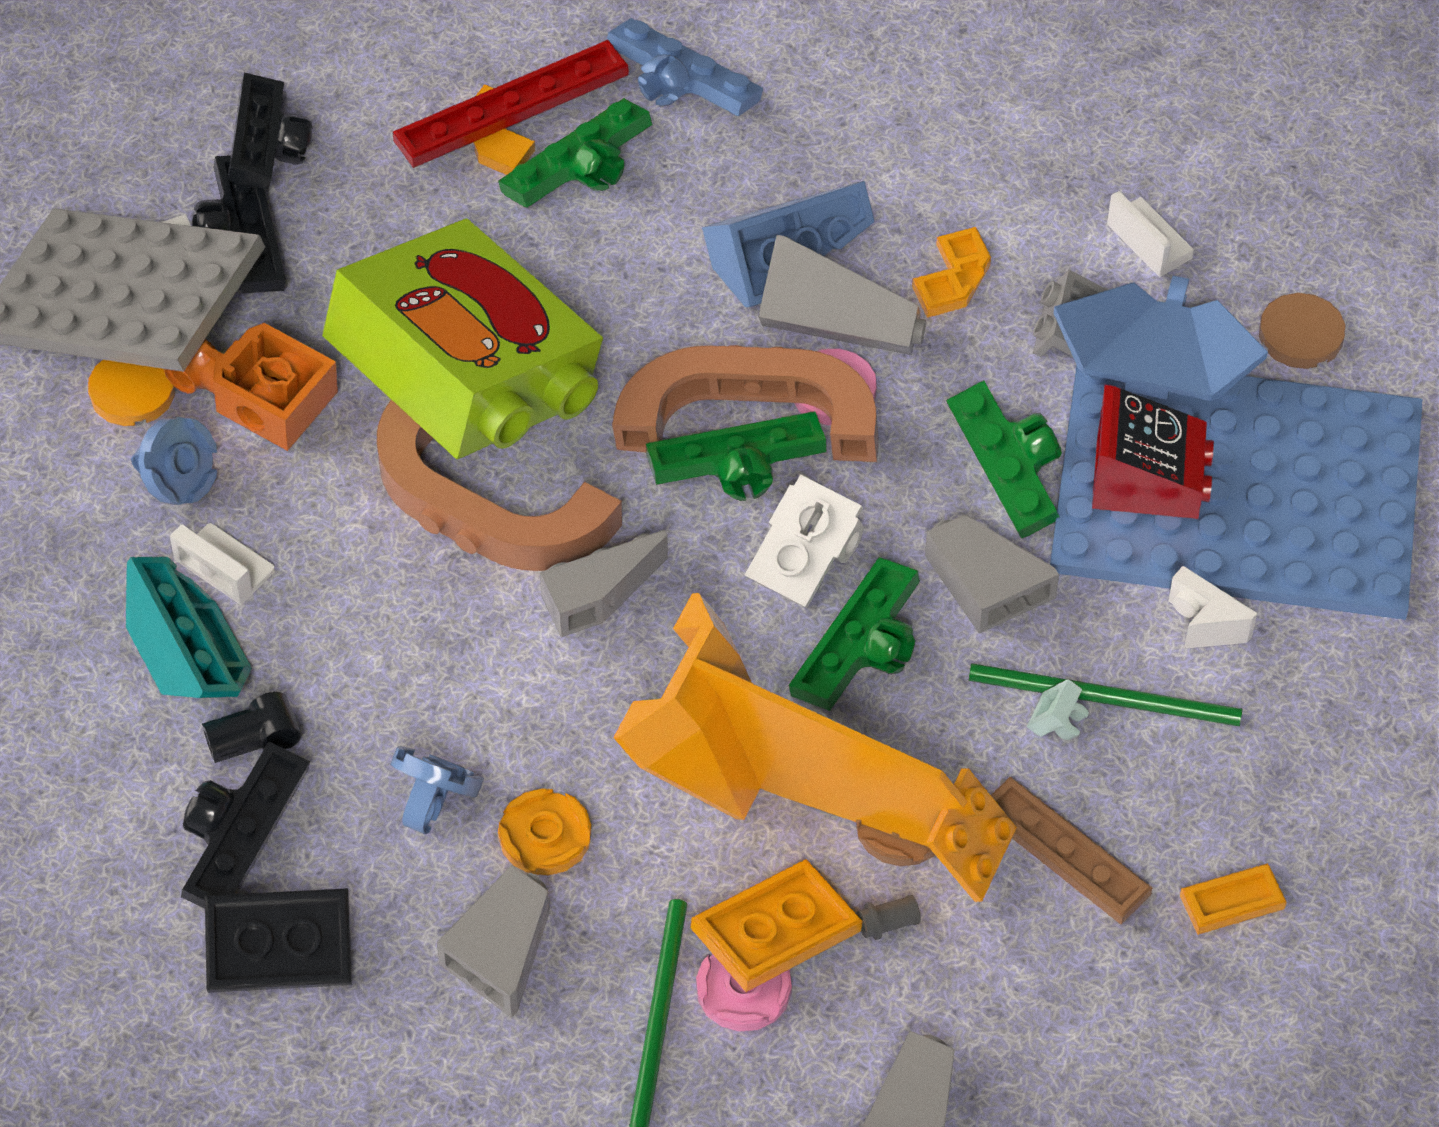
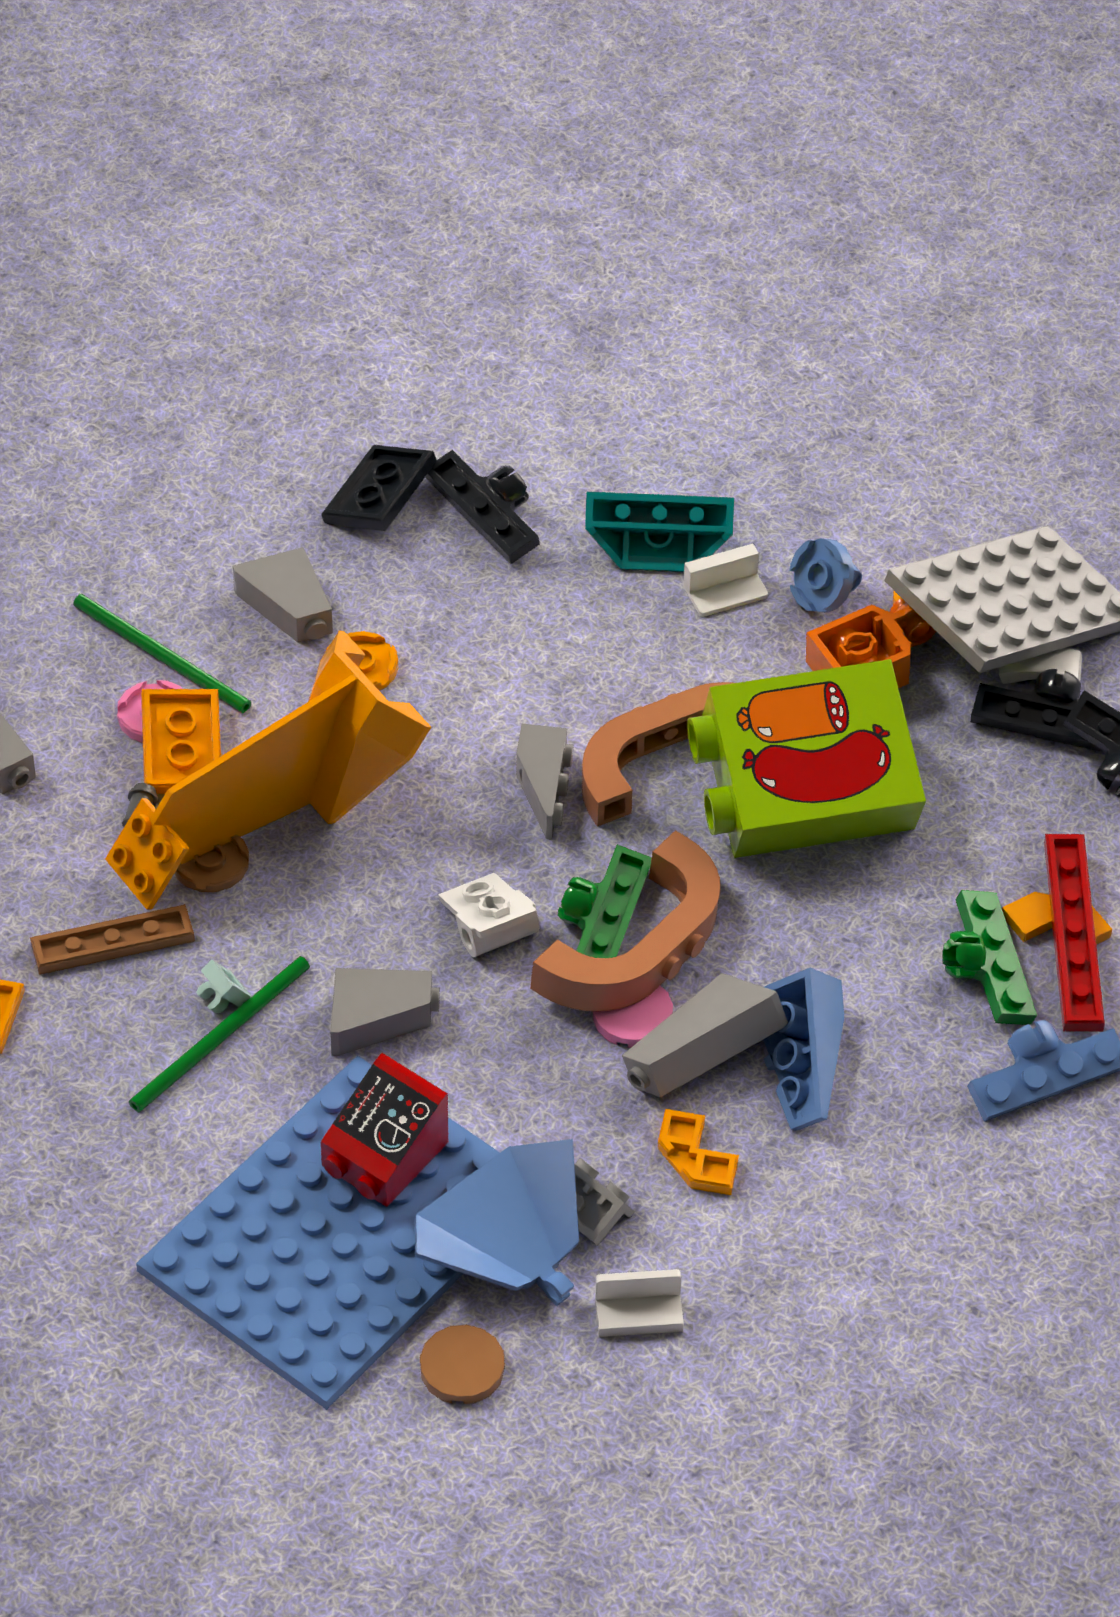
camera: 120 degrees right, 5 degrees down
(264, 721) = (561, 544): black piece -> none
(432, 783) = (439, 604): medium blue tile -> none
(861, 636) = (380, 905): green plate -> none
(1010, 455) = (482, 1086): green plate -> none
(1216, 614) = (228, 1132): white slope -> none

